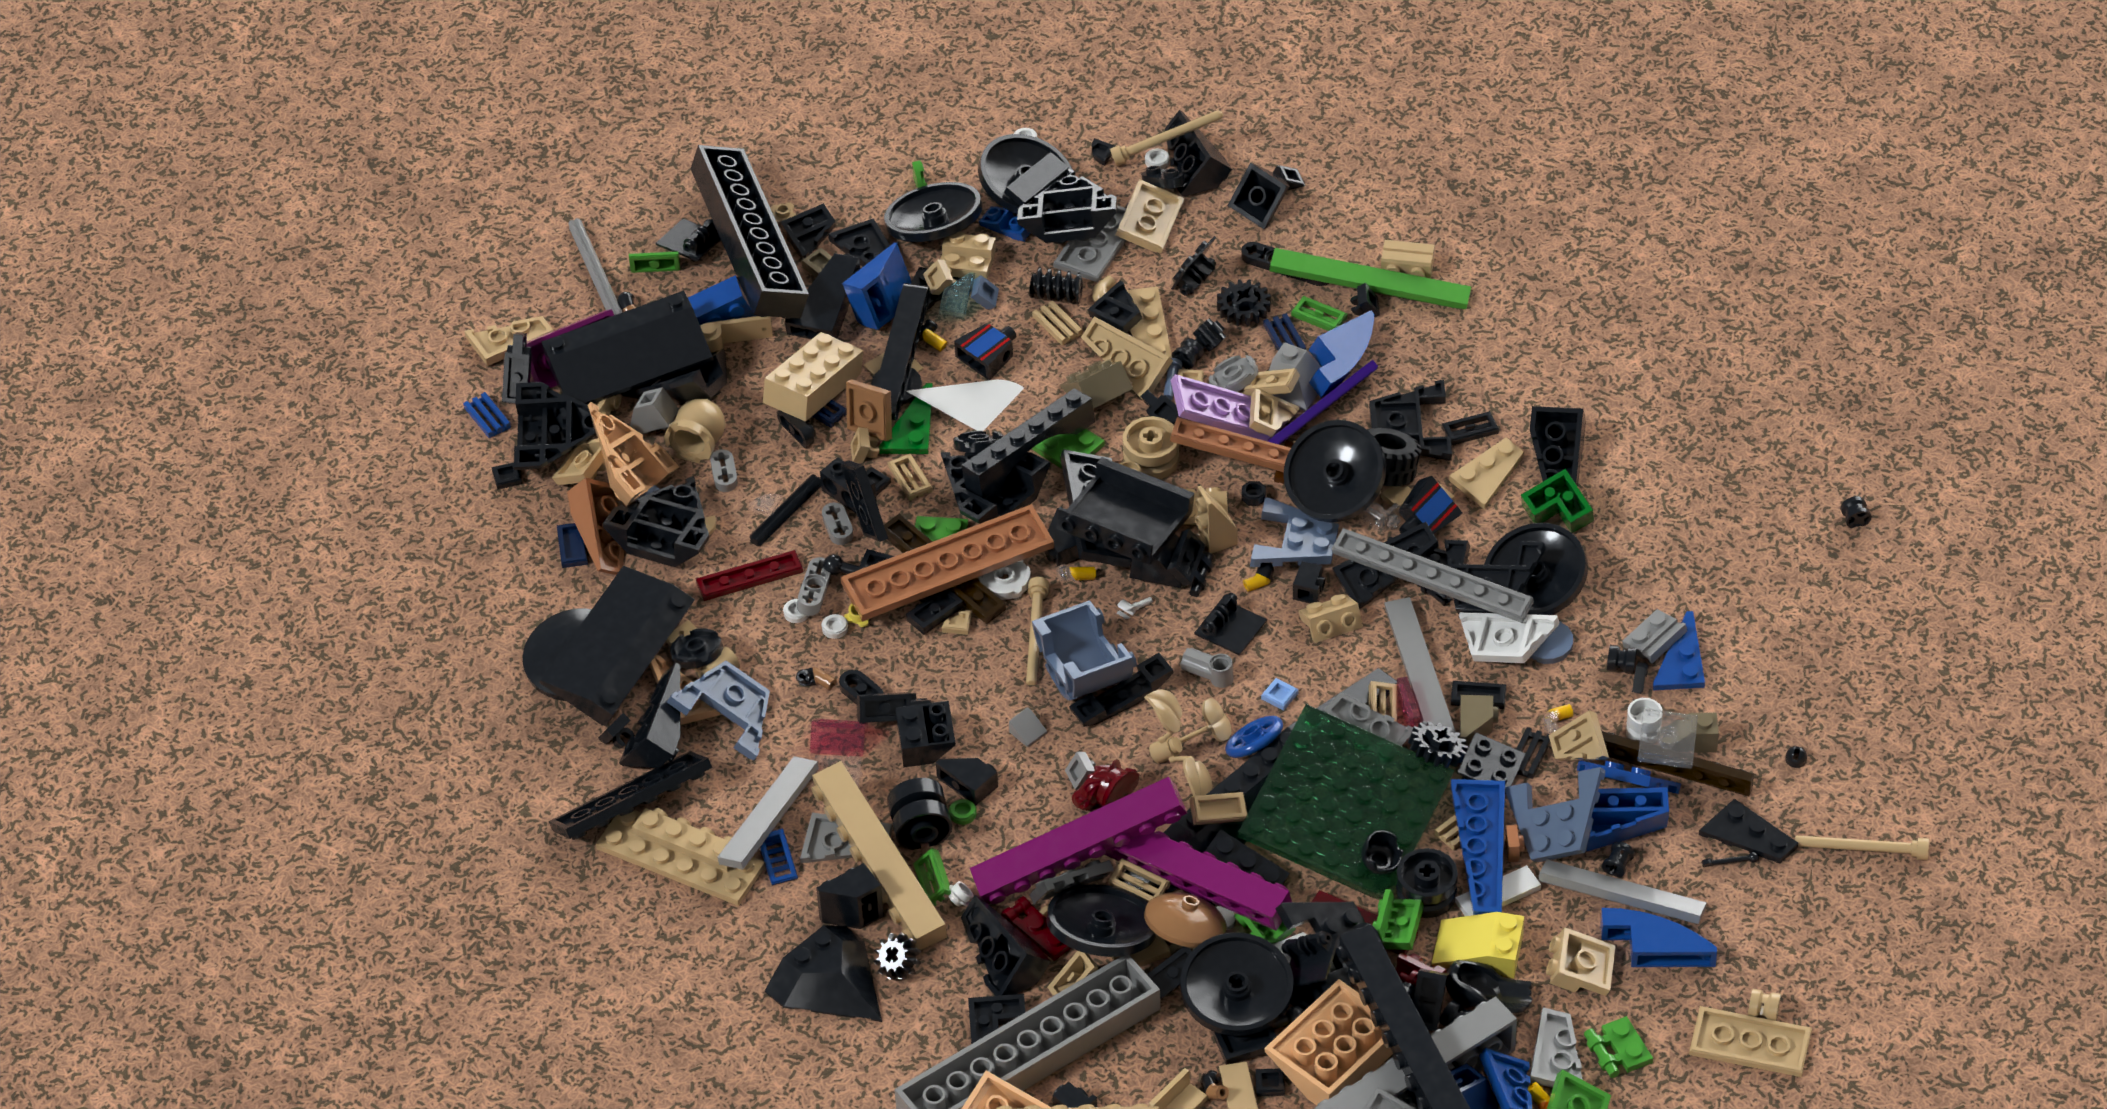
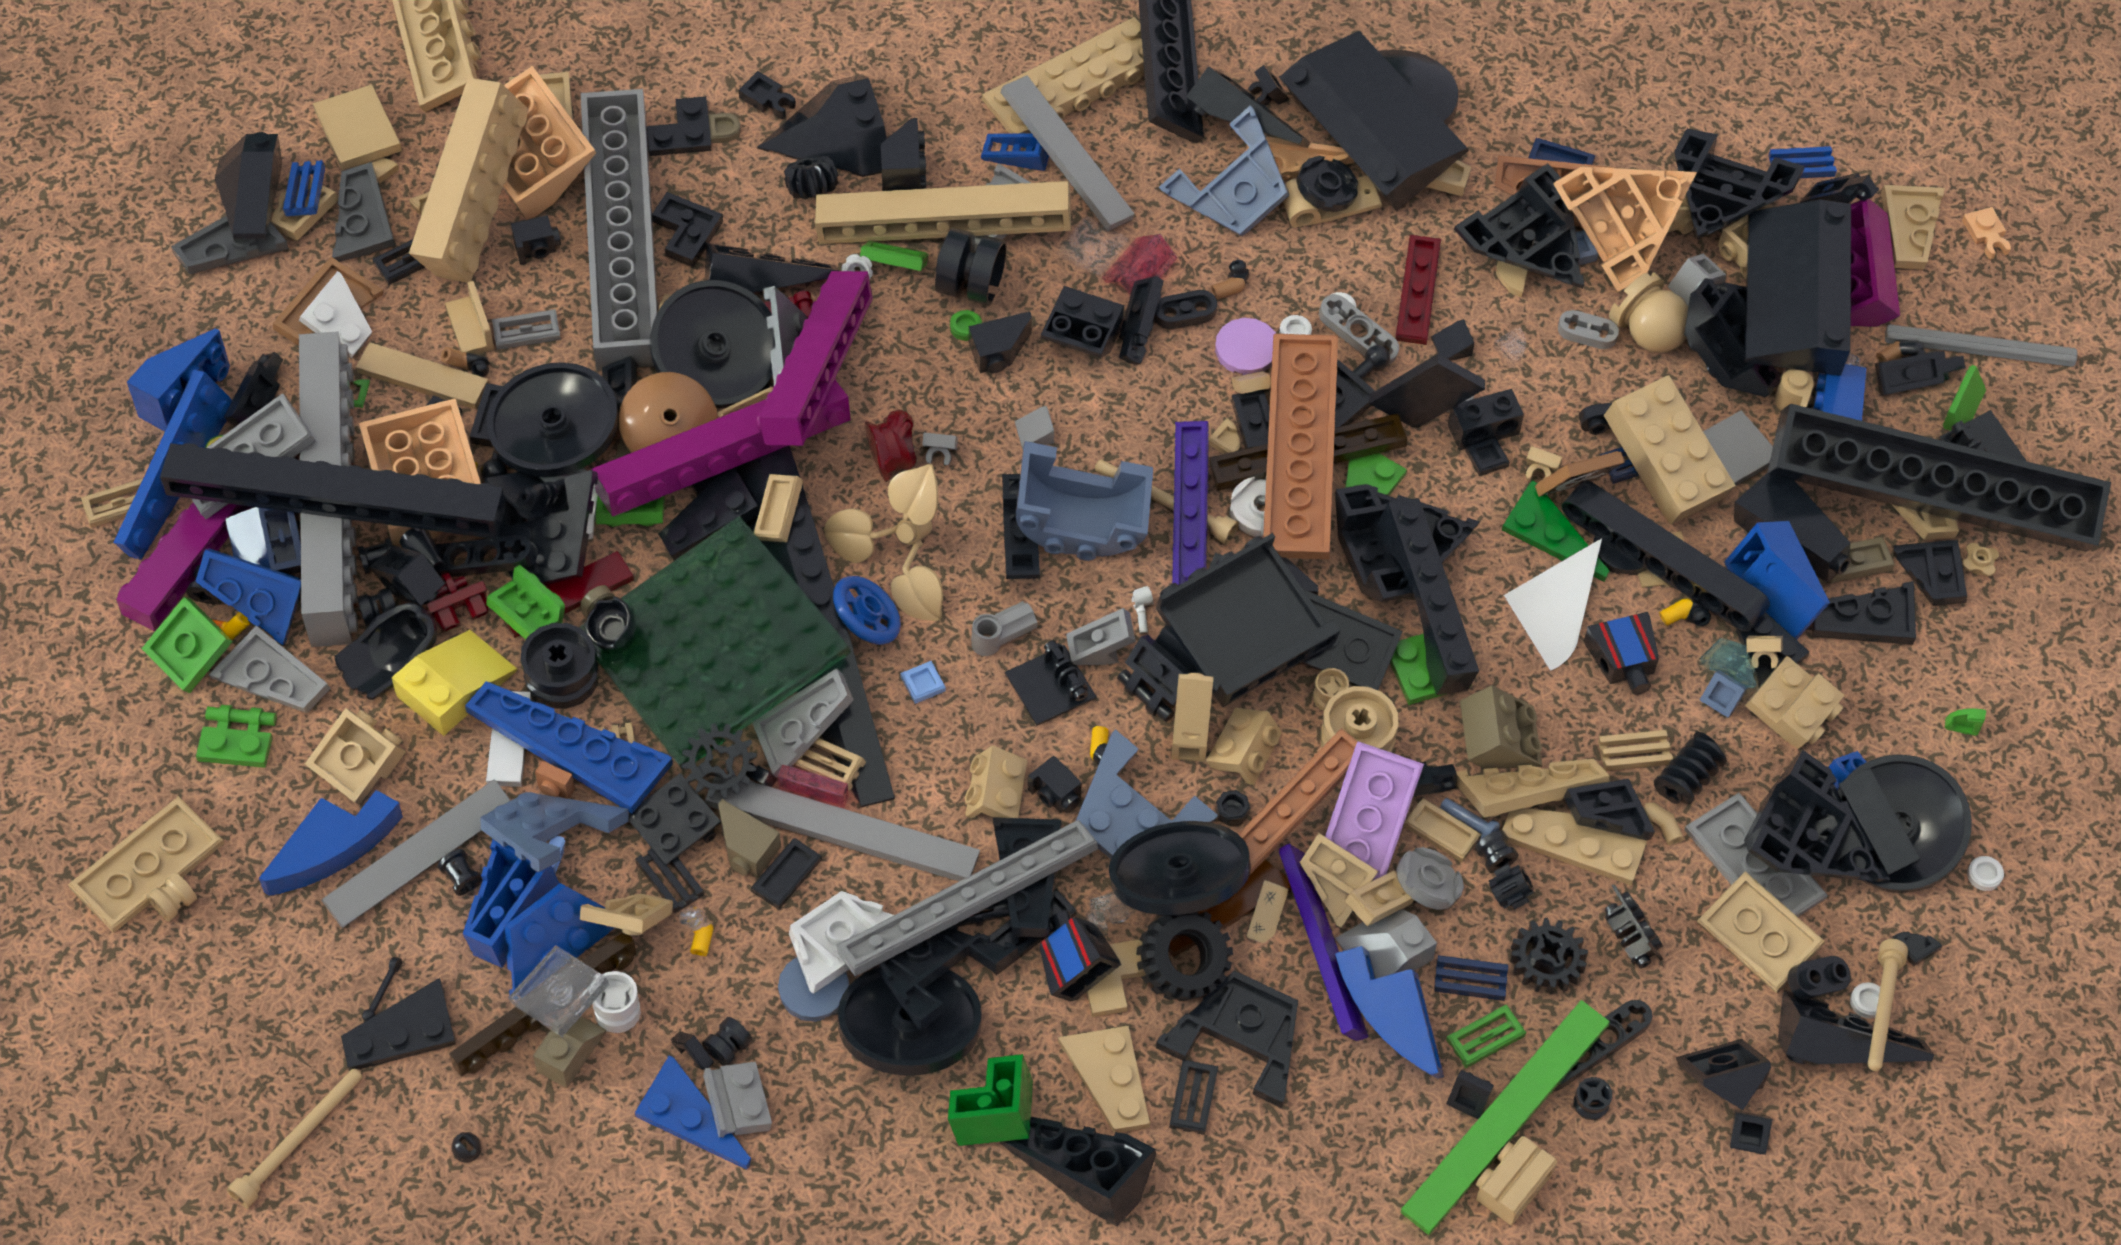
camera: 115 degrees right, 10 degrees up
(487, 302) = (1987, 228): none -> light nougat plate
(639, 285) = (1916, 371): none -> black hinge
(768, 356) = (1740, 447): none -> light grey tile
(785, 510) = (1492, 356): black axle -> none
(785, 535) = (1454, 341): none -> black slope
(829, 1036) = (764, 93): none -> black plate
(868, 646) = (1245, 346): none -> lavender tile
(877, 1050) = (723, 127): none -> dark tan tile
(895, 1067) = (686, 136): none -> black plate
(903, 624) = (1251, 382): none -> tan tile
(918, 491) = (1472, 497): tan tile -> none
(933, 212) = (1886, 695): black dish -> none
(975, 441) = (1476, 569): black tile -> none
(1038, 605) = (1190, 499): none -> dark purple tile
(1144, 1075) = (526, 333): none -> light grey tile
(1183, 607) = (1100, 639): none -> light grey slope
(1325, 246) = (1596, 1091): none -> black wheel
(1358, 894) = (592, 597): none -> dark tan tile

